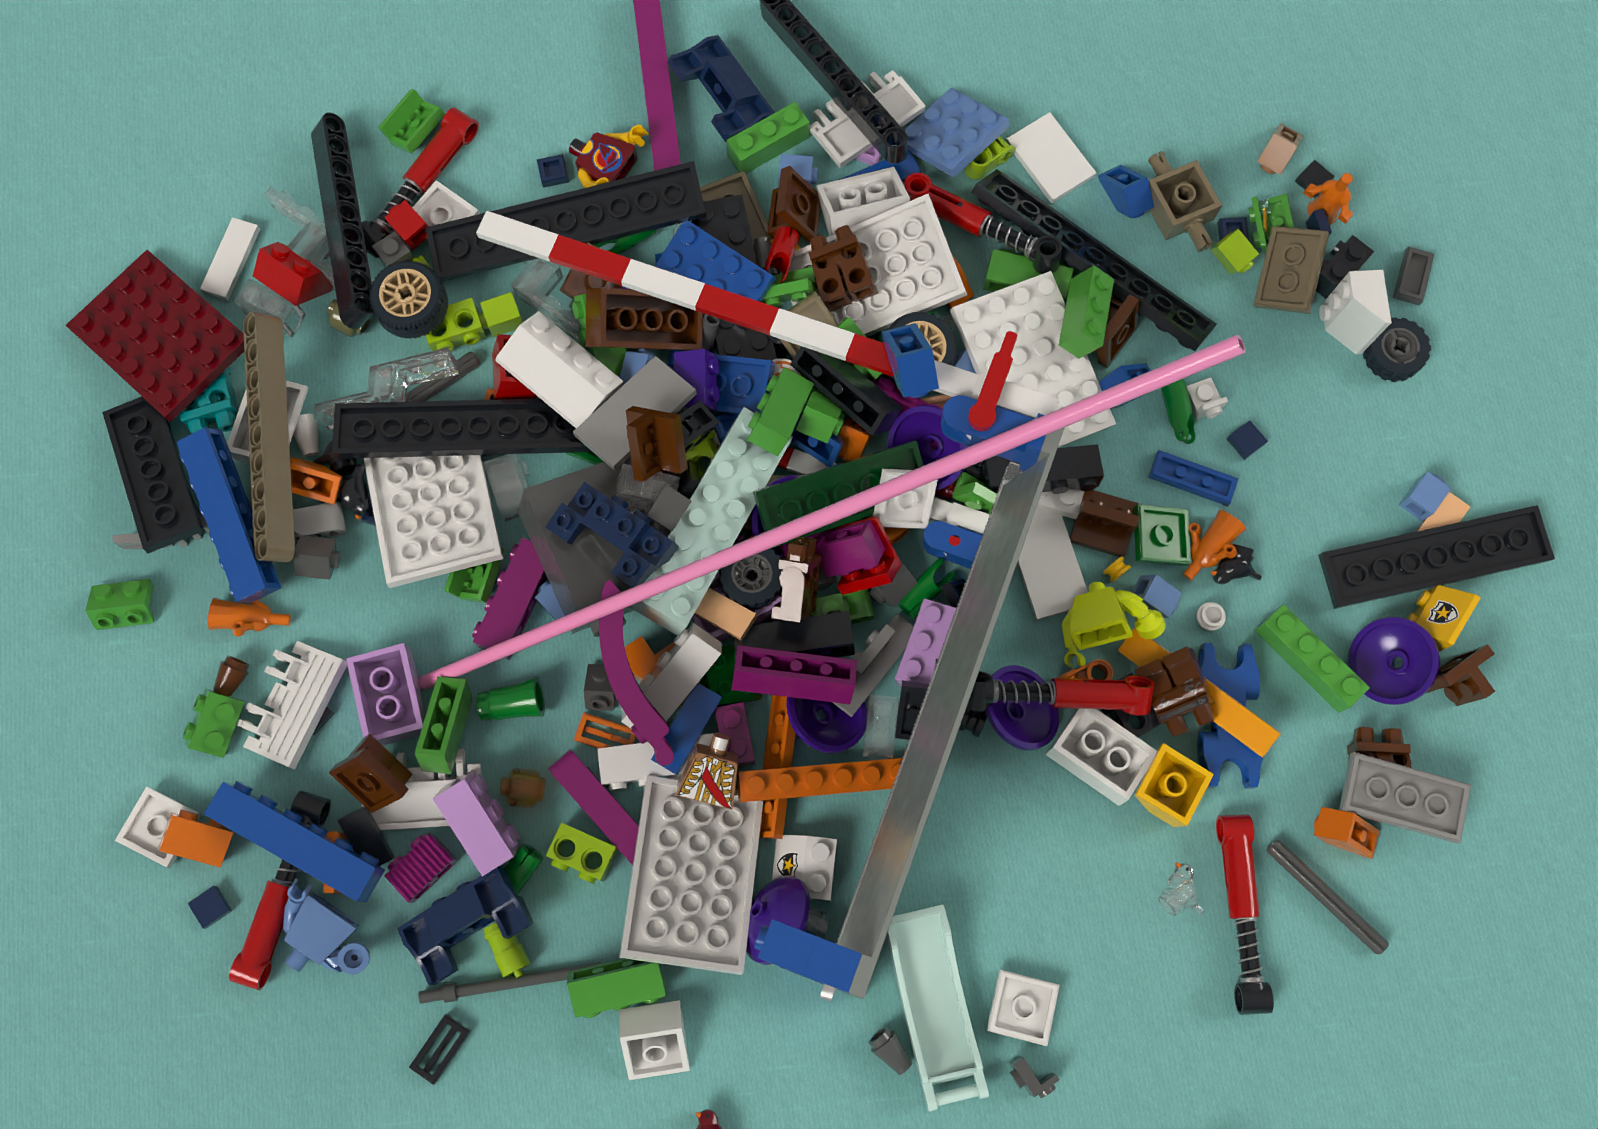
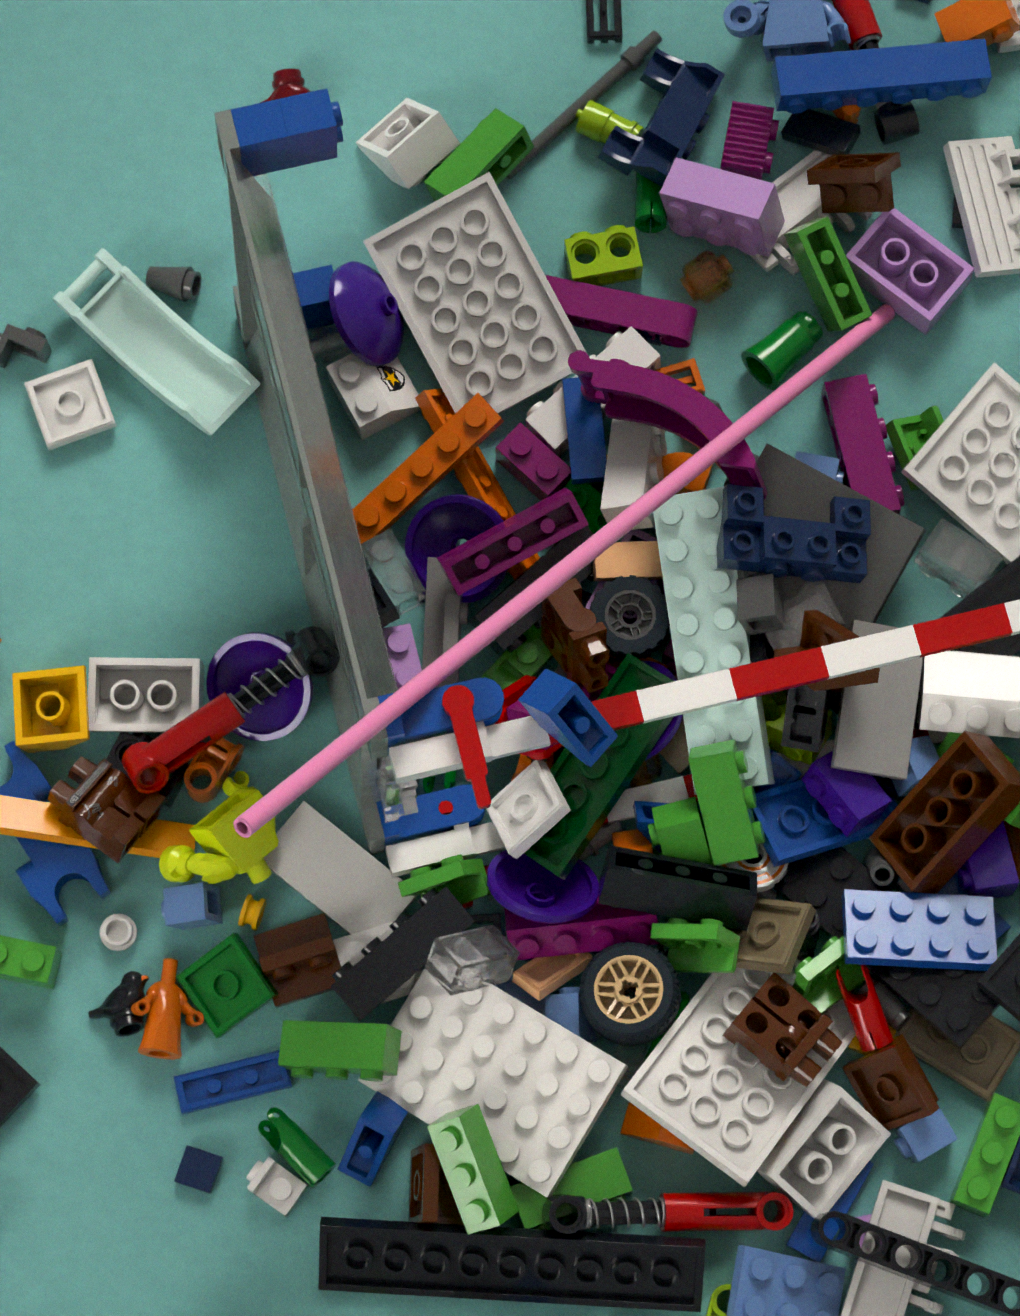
camera: 150 degrees right, 0 degrees up
(710, 773) = (527, 397): torso -> none
(1120, 445) = (339, 1049): none -> bright green brick

